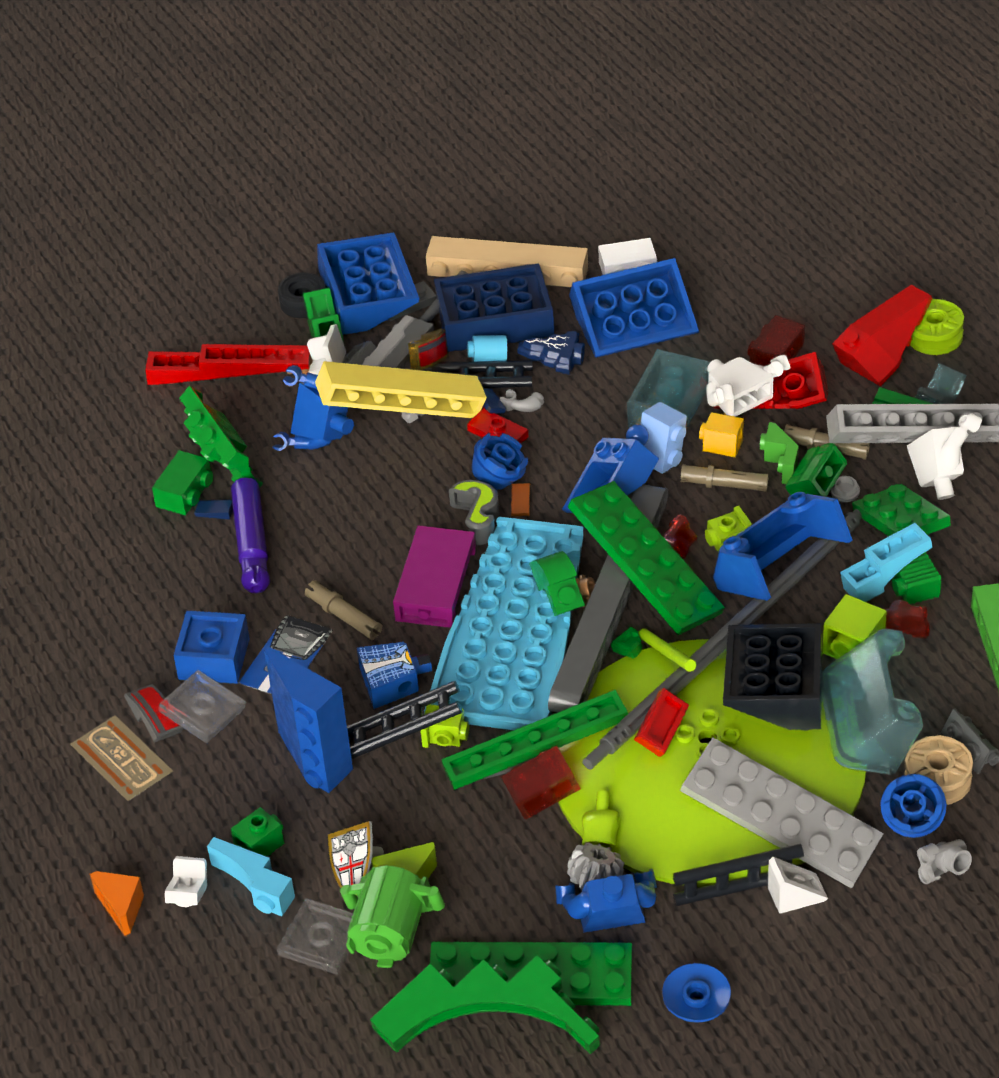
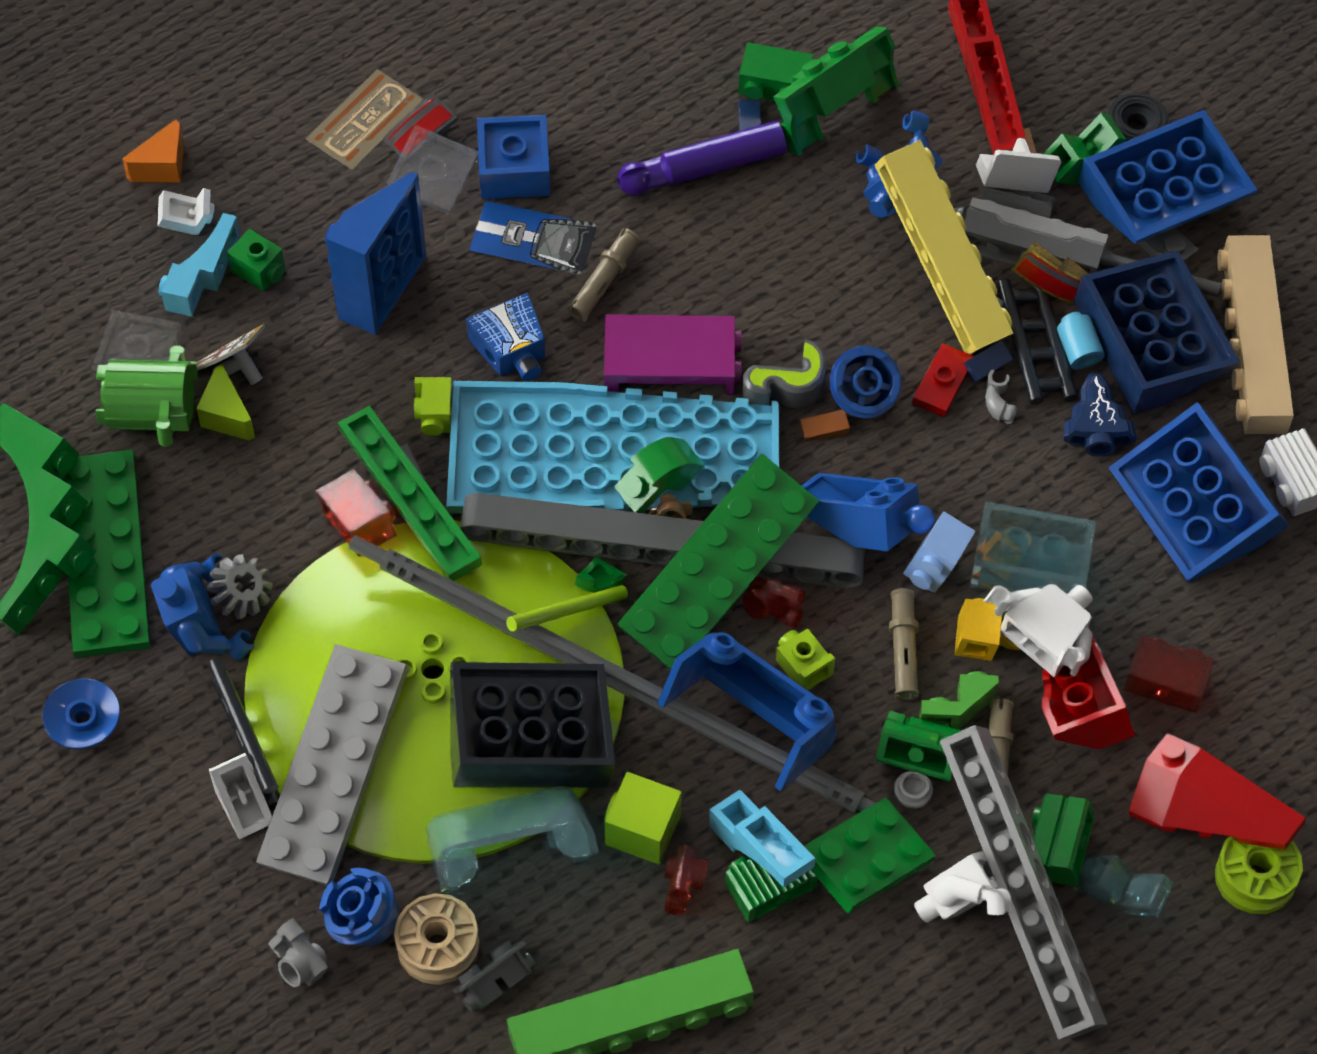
camera: 75 degrees right, 15 degrees up
(417, 723) = (416, 371): black bar -> none
(601, 824) = (301, 582): lime piece -> none
(661, 722) = (433, 611): red tile -> none

